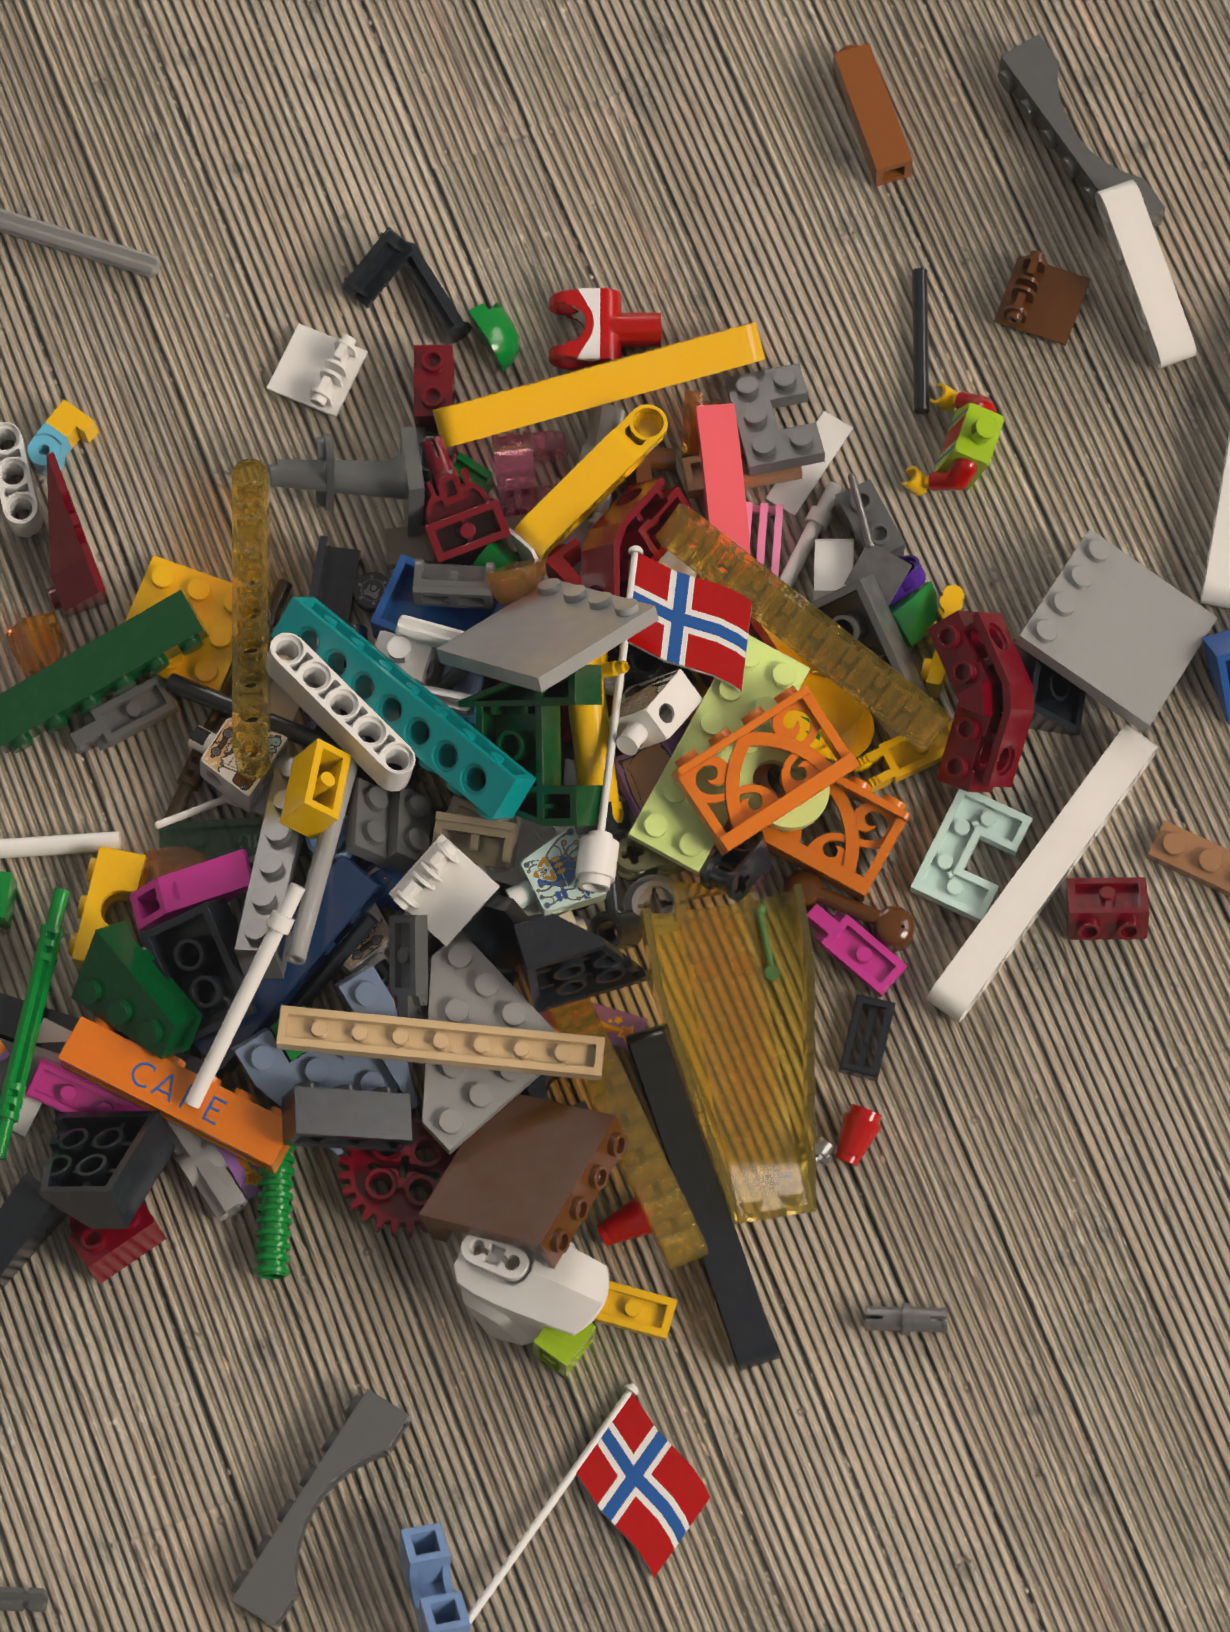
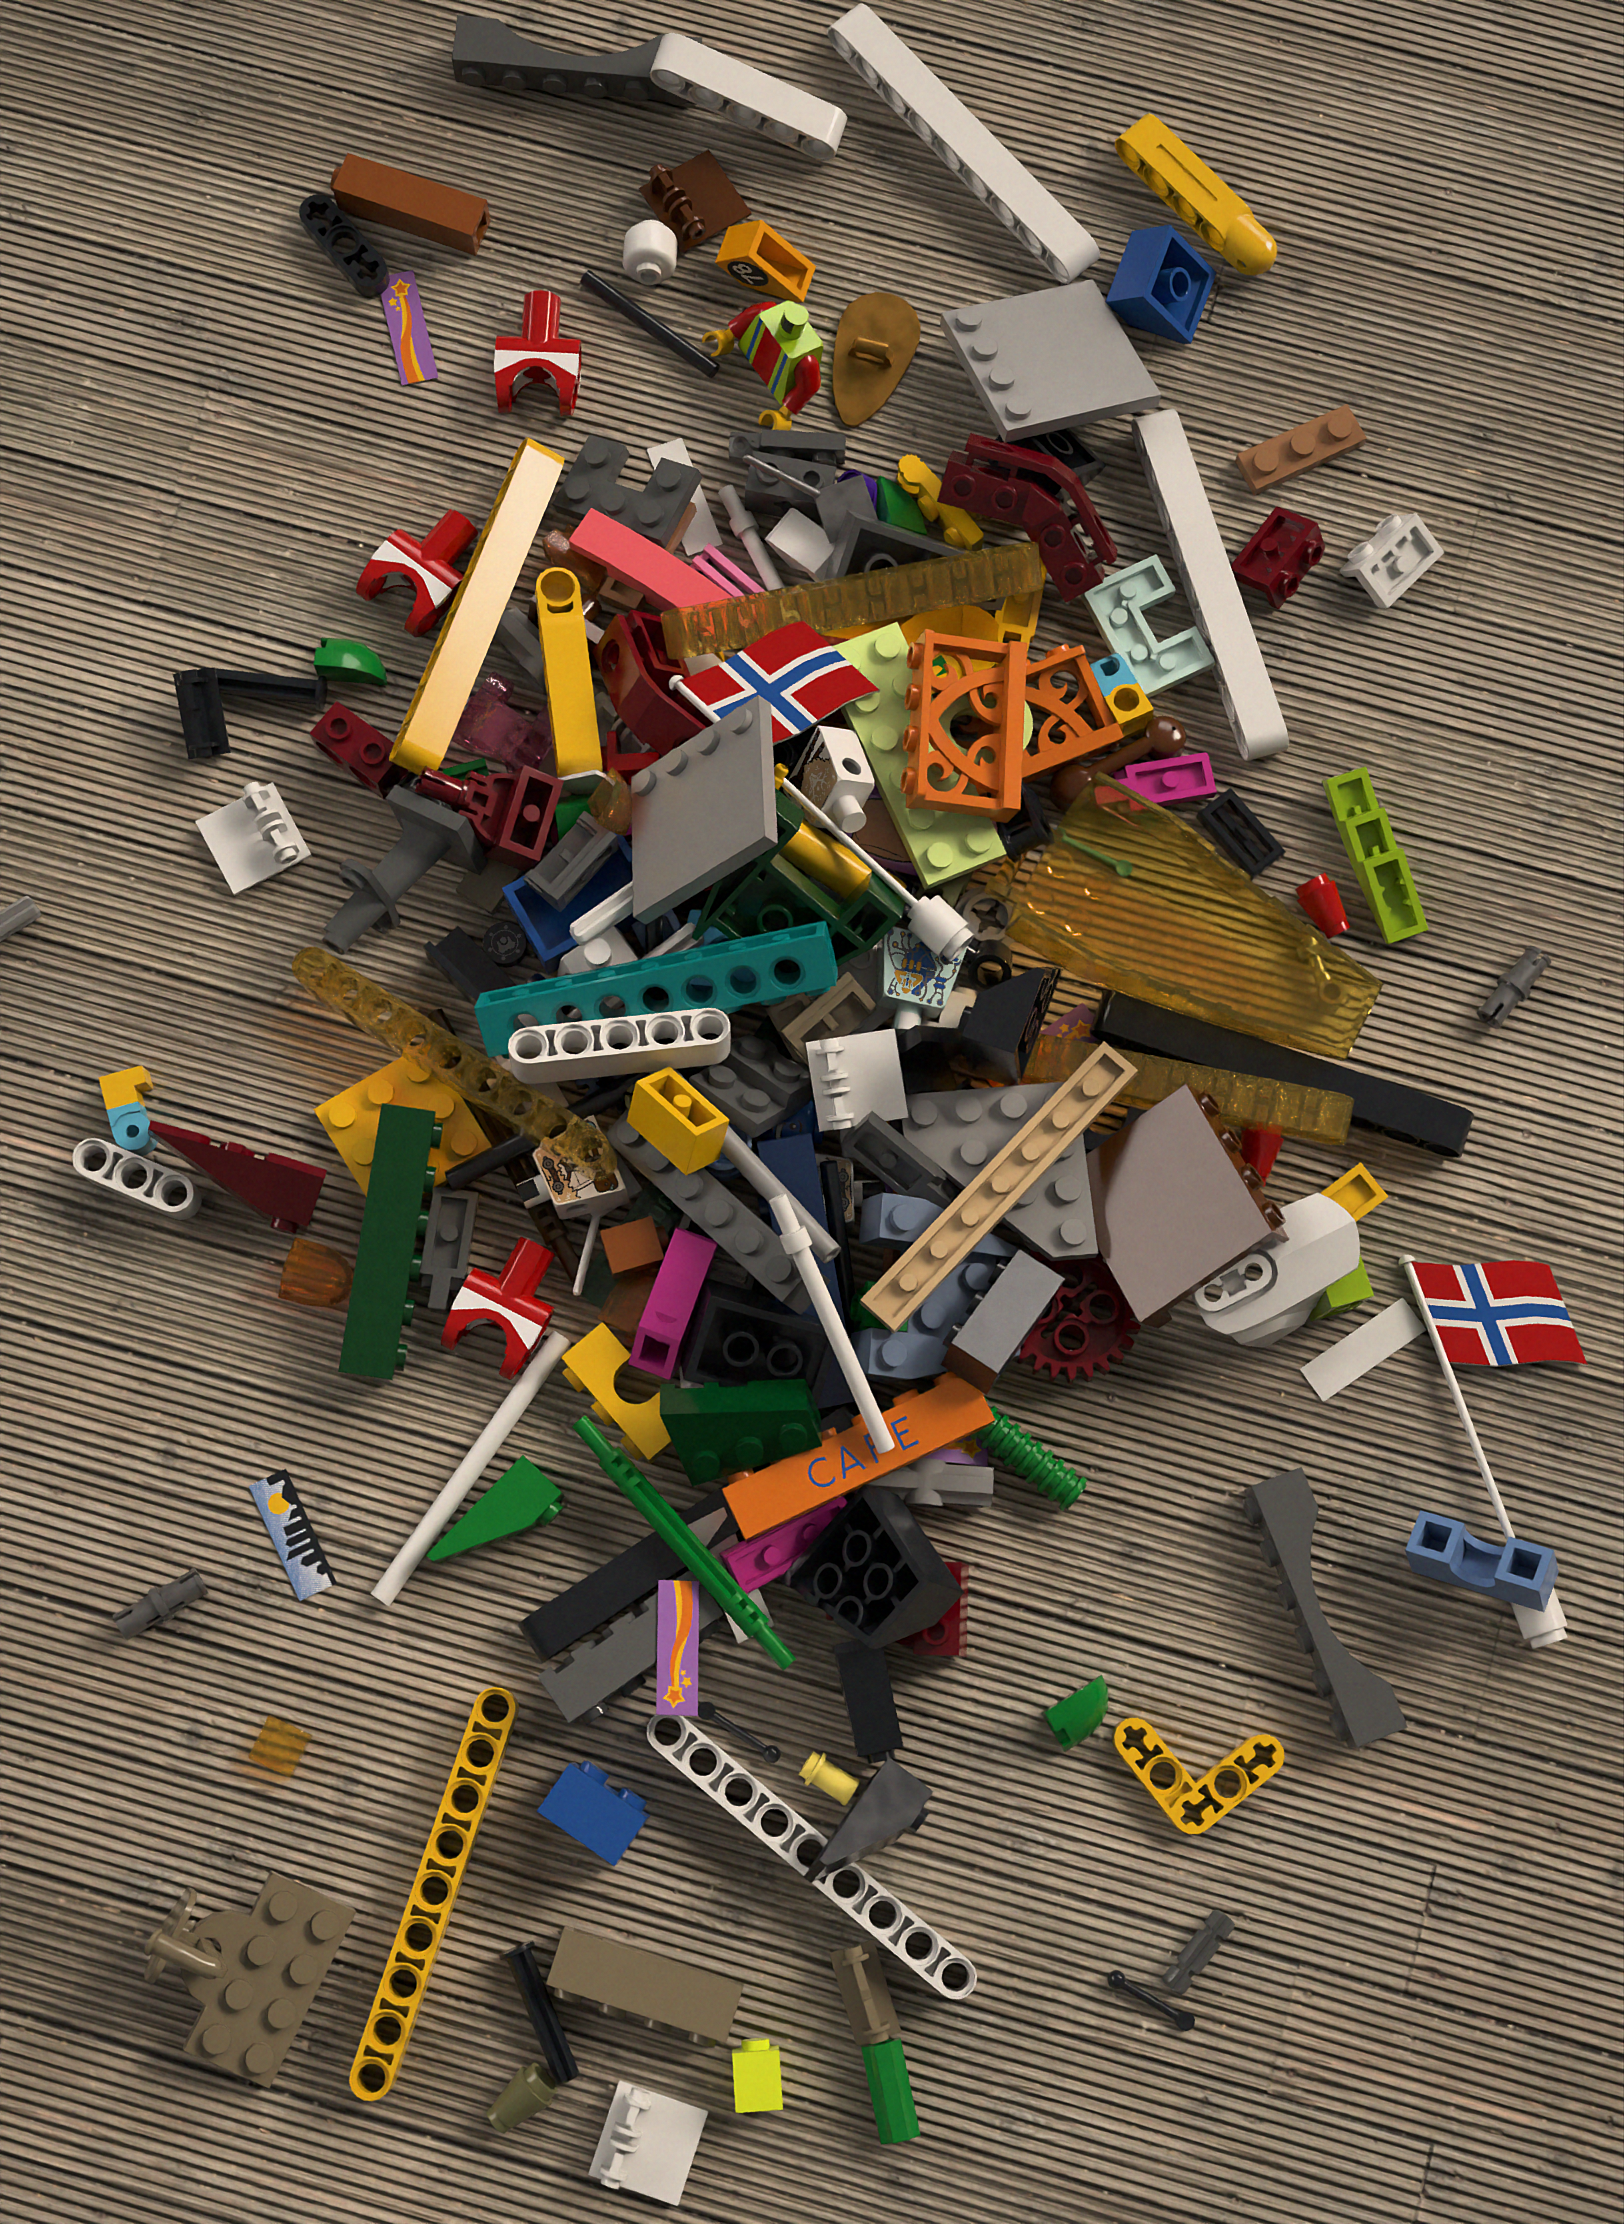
camera: 60 degrees left, 5 degrees up
(112, 784) = (505, 1304): none -> red connector
(116, 1391) = (1078, 1714): none -> green brick
(118, 1505) = (1184, 1787): none -> yellow beam
(214, 834) = (634, 1246): none -> dark orange brick
(541, 1406) = (1363, 1349): none -> white sticker
(781, 183) = (408, 329): none -> medium lavender sticker
(810, 109) = (341, 228): none -> black beam
(828, 285) = (538, 355): none -> red connector
(898, 871) = (1122, 694): none -> yellow leg
(899, 501) = (806, 446): none -> dark grey hinge
(927, 1144) = (1375, 856): none -> lime slope
(972, 299) = (650, 252): none -> white head
(1028, 509) = (872, 354): none -> pearl gold shield
(1032, 382) = (765, 261): none -> light orange slope
(1174, 991) = (1393, 558): none -> white bracket

